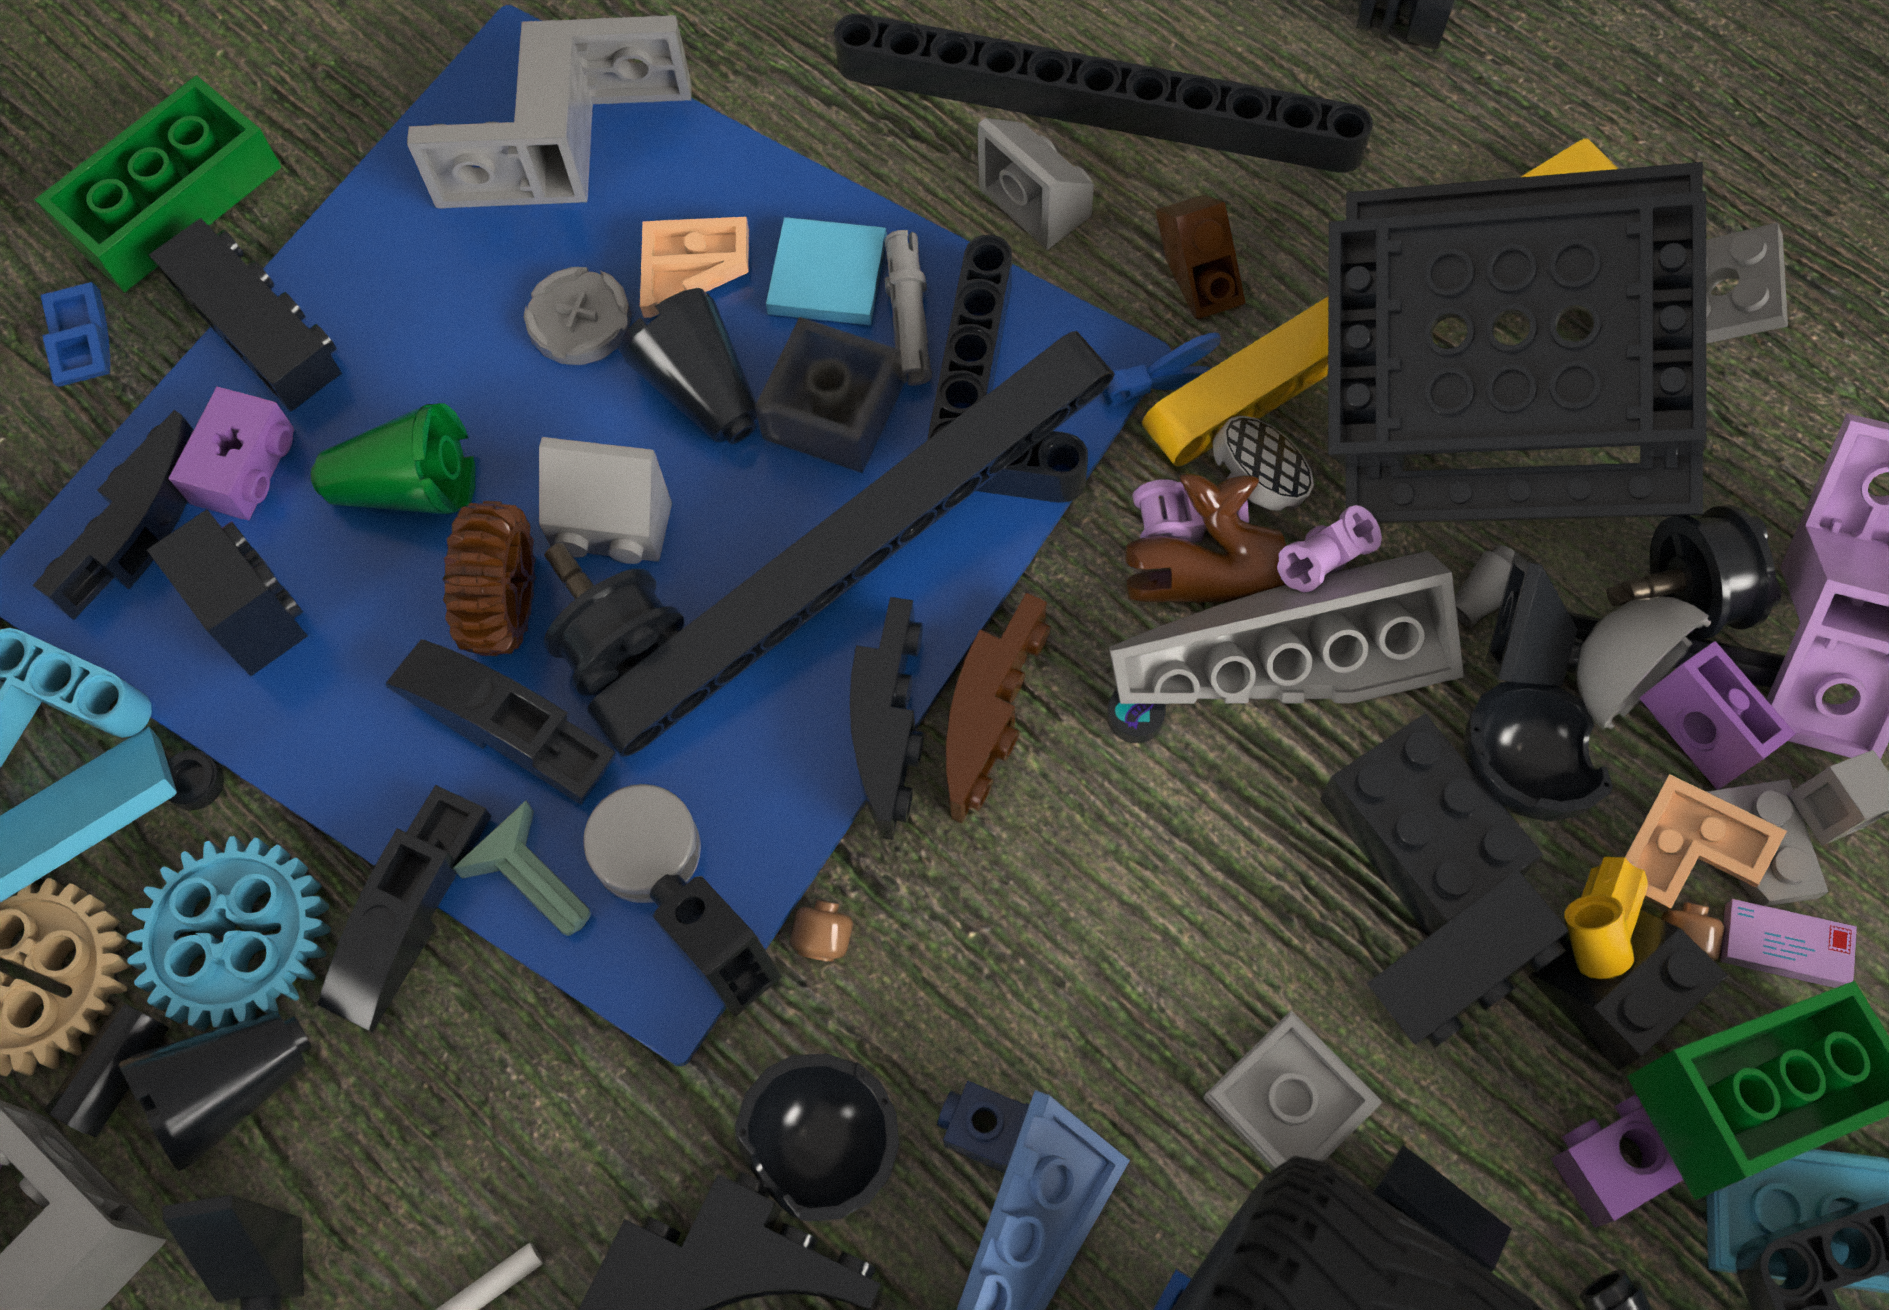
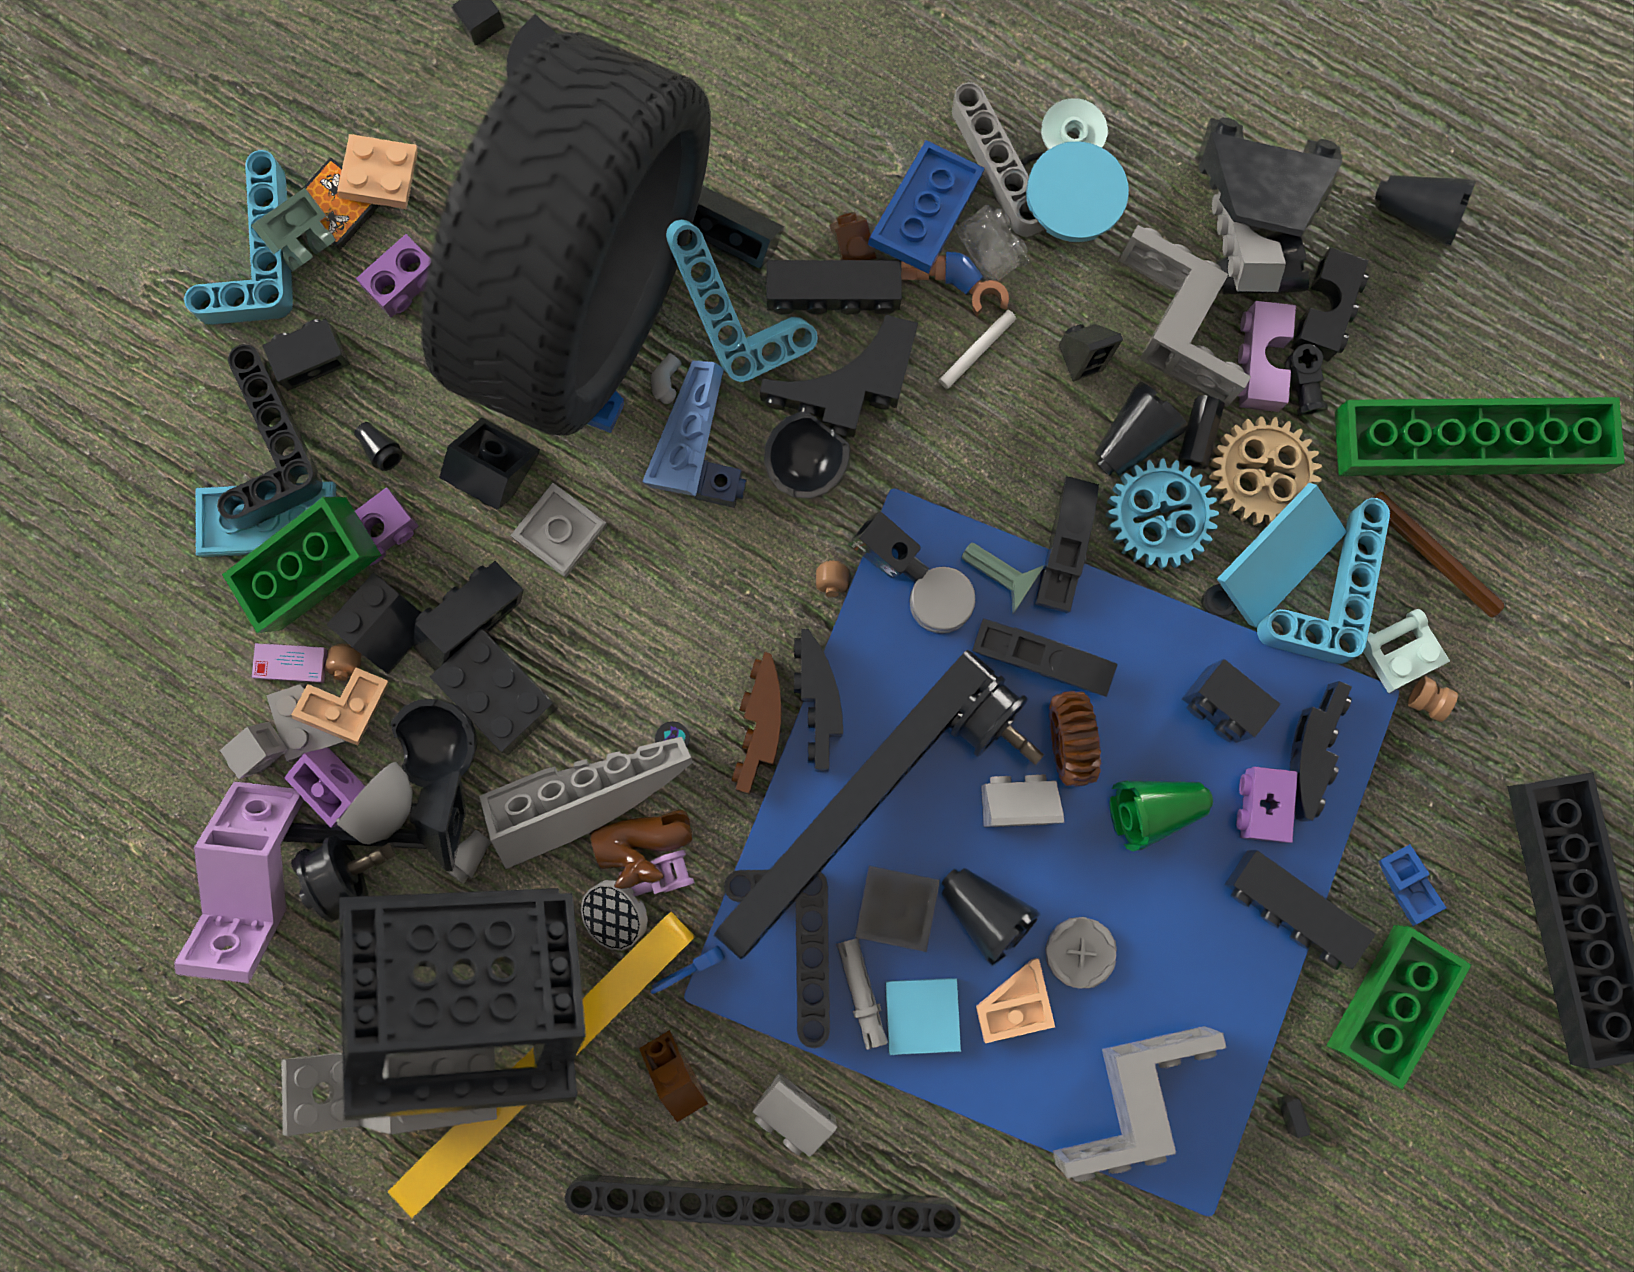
camera: 160 degrees right, 15 degrees up
(355, 90) = (1293, 1116): none -> black tile
(1328, 549) = (566, 860): lavender connector -> none
(1605, 918) = (392, 652): yellow piece -> none

